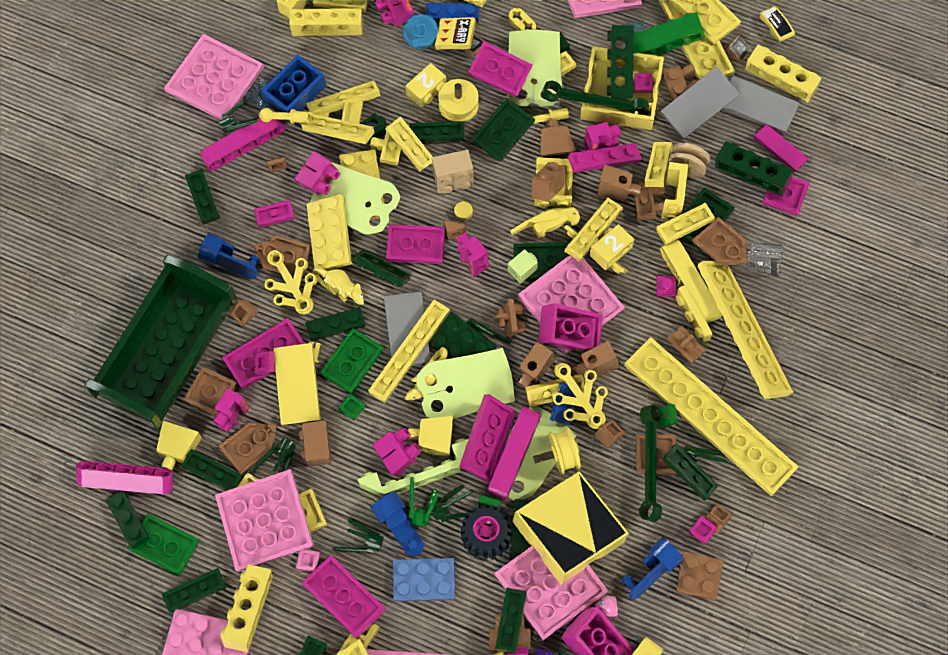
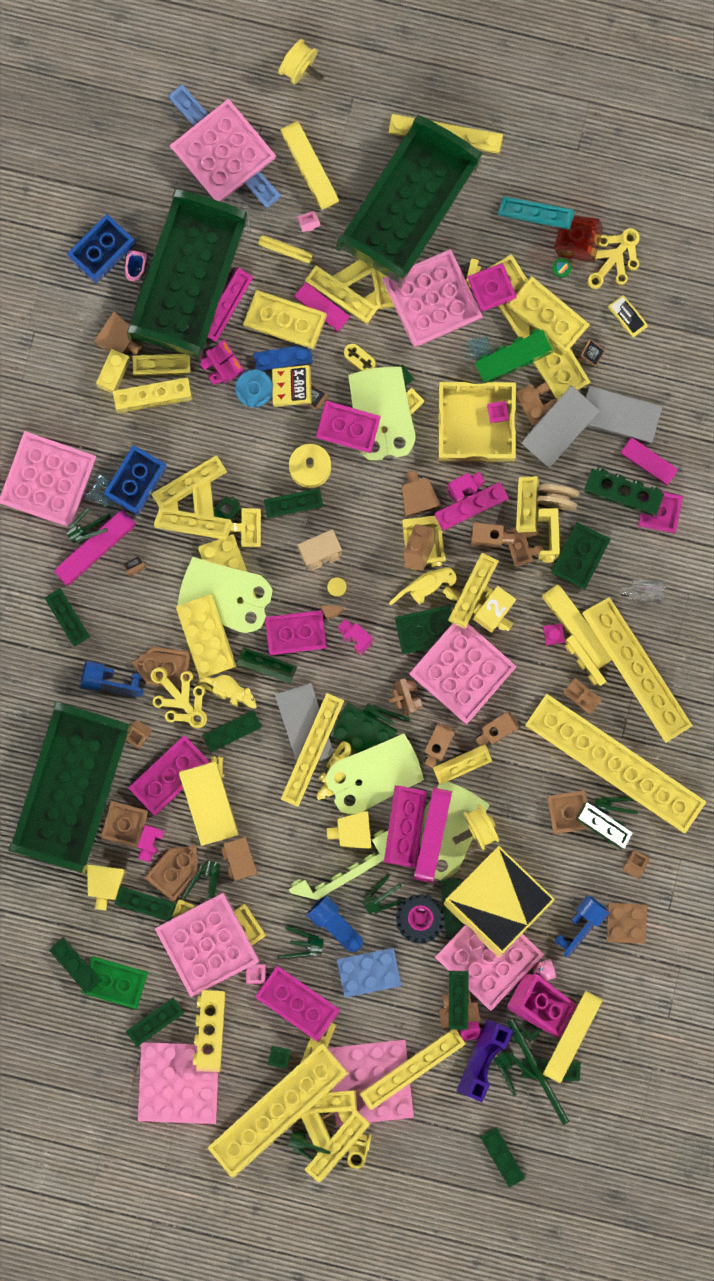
camera: 15 degrees left, 15 degrees up
(124, 477) = (62, 926): beam -> none
(264, 362) = (173, 788): dark pink plate -> none
(267, 115) = (114, 518): light yellow pin -> none
(274, 214) = (145, 624): dark pink plate -> none
(317, 174) = (187, 569): dark pink hips -> none
(352, 361) = (256, 767): green tile -> none
(352, 407) = (266, 814): green tile -> none
(395, 452) = (327, 857): dark pink hips -> none
(409, 144) = (269, 525): light yellow plate -> none
(421, 516) = (355, 914): green plant -> none
(425, 85) = (272, 452): light yellow brick -> none
(483, 500) = (413, 889): green tile -> none
(503, 130) = (362, 491): dark green plate -> none
(522, 266) = (409, 642): yellowish green brick -> none
(557, 411) = (473, 777): blue tile -> none
(558, 114) = (381, 476): light yellow pin -> none
(569, 328) = (466, 701): dark pink slope -> none
(581, 398) = (489, 771): light yellow plant -> none
(589, 98) = (494, 443): dark green piece -> none
(609, 433) = (521, 797): medium nougat slope -> none
(625, 34) = (472, 369): dark green brick -> none
(650, 417) = (565, 824): dark green piece -> none
(669, 416) = (574, 772): green tile -> none
(685, 223) = (563, 568): light yellow plate -> none
(703, 530) = (624, 879): dark pink plate -> none
(722, 243) = (603, 583): medium nougat tile -> none
(785, 81) = (648, 385): light yellow brick -> none

